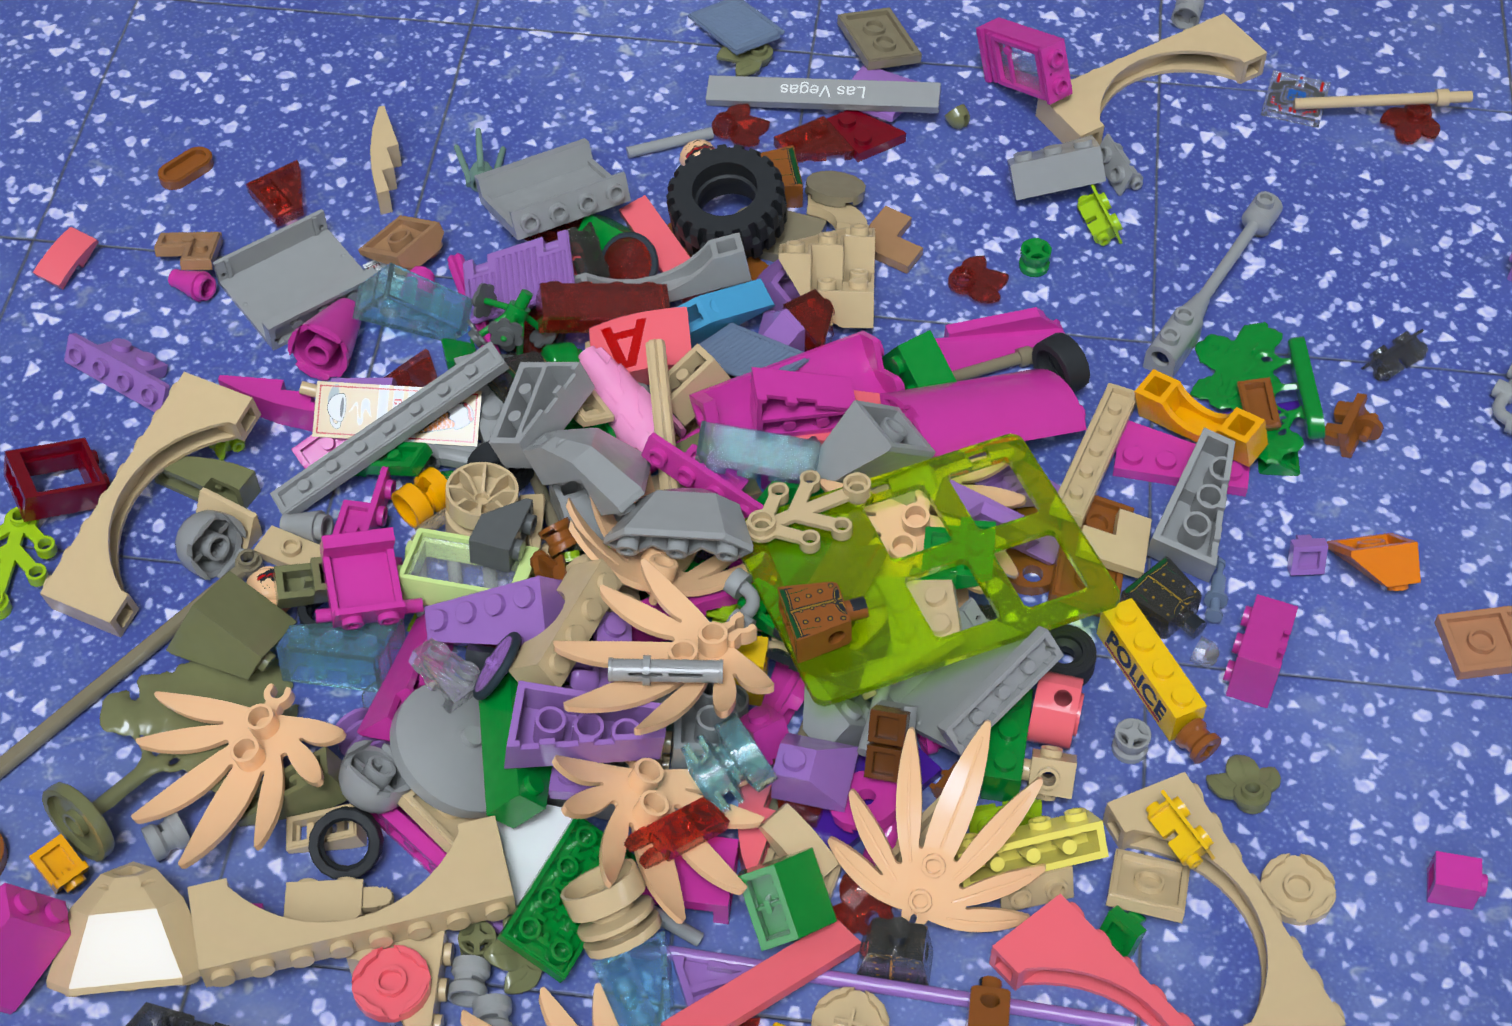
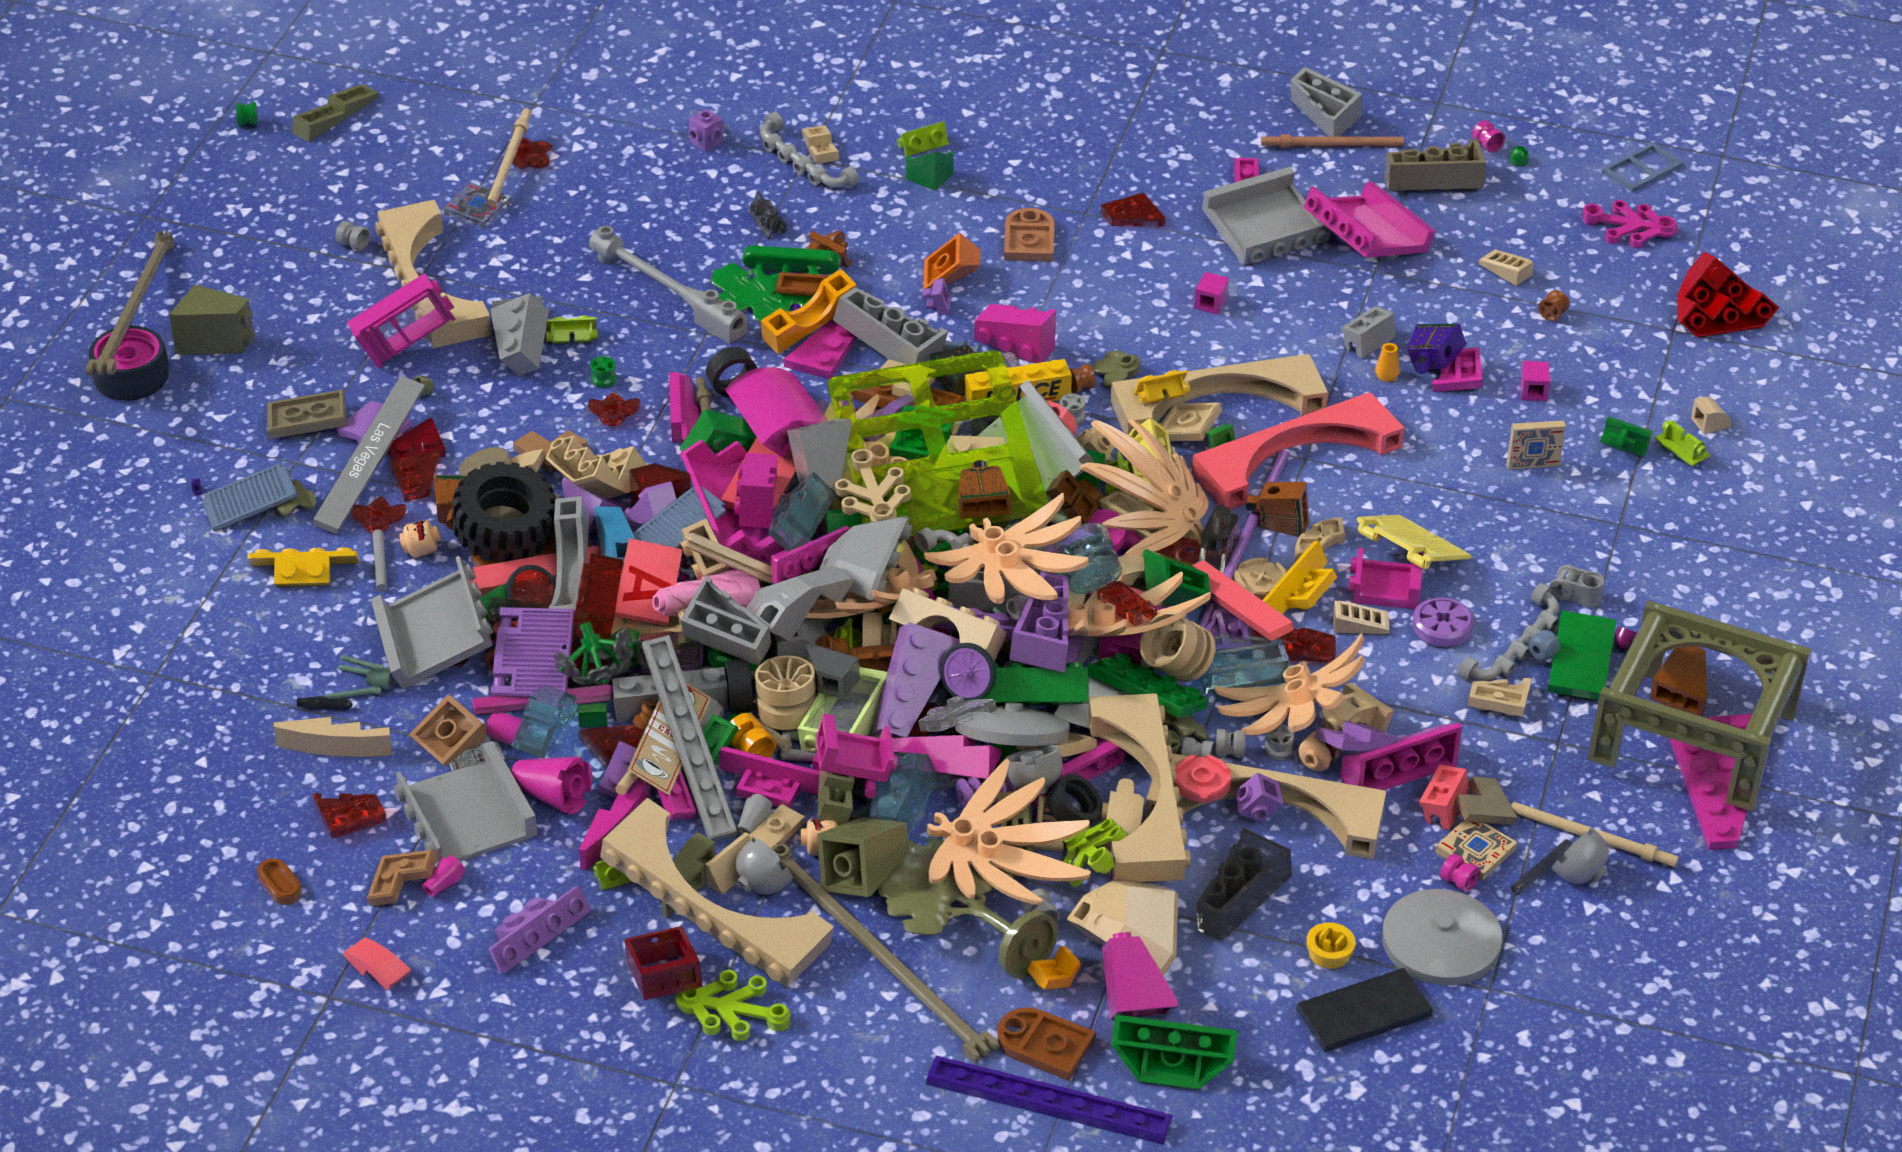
camera: 80 degrees left, 10 degrees down
(251, 866) = (1099, 859): none -> lime plant
(444, 145) = (323, 702): none -> black piece
(638, 84) = (303, 568): none -> yellow bracket
(665, 670) = (1021, 564): light grey pin -> none
(1096, 450) = (810, 368): tan tile -> none
(1299, 888) = (1196, 358): tan tile -> none

